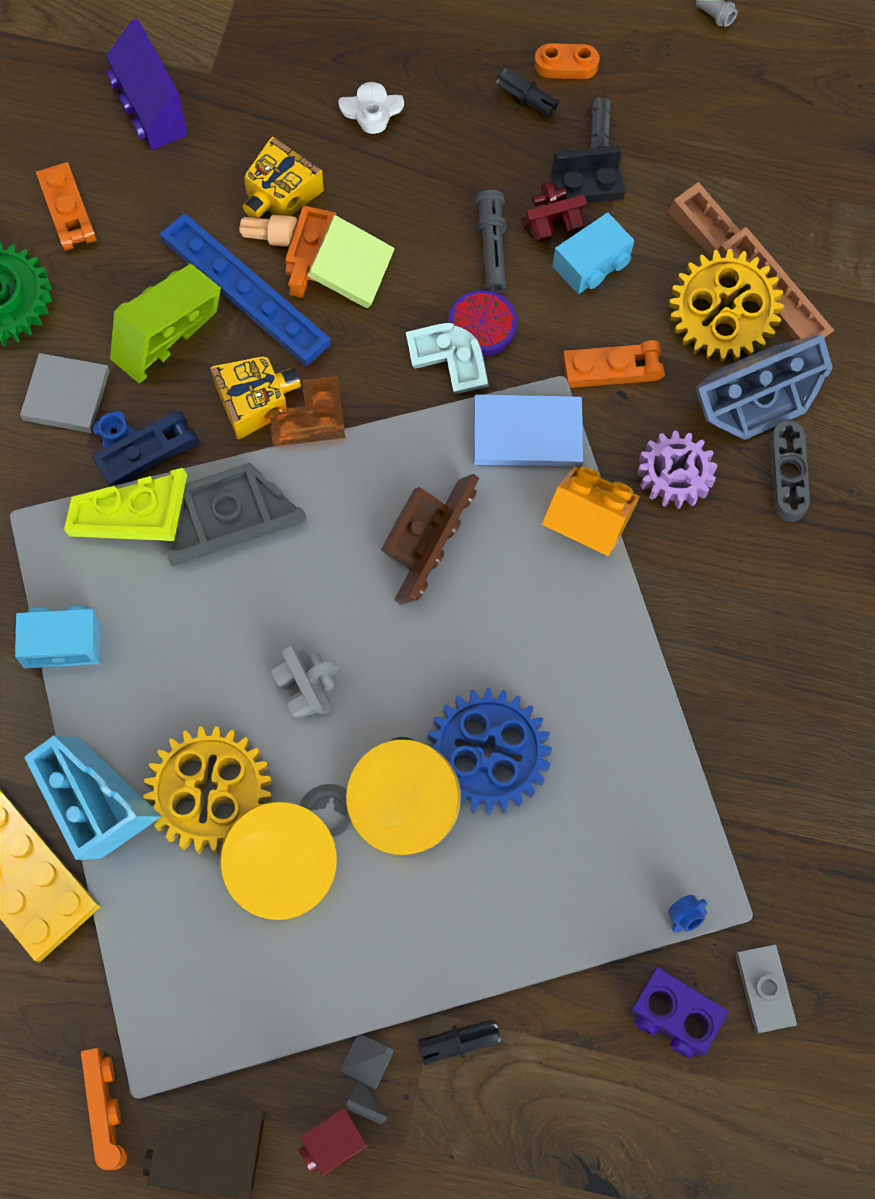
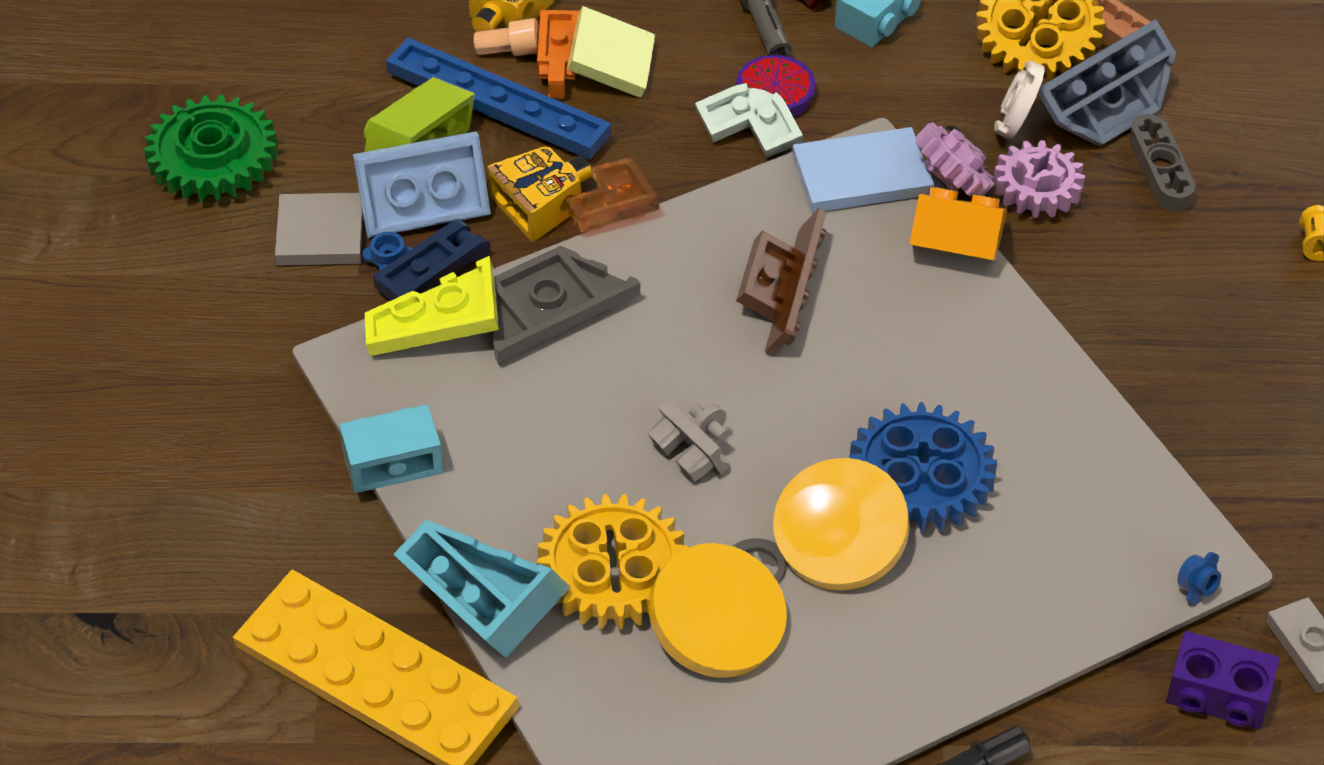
camera: 10 degrees left, 20 degrees down
(65, 205) = (266, 57): orange plate -> none
(151, 374) = (422, 184): none -> light blue tile
(607, 441) = (954, 160): none -> lavender gear
(613, 365) = (935, 100): orange plate -> none
(681, 389) = (1019, 99): none -> white tile

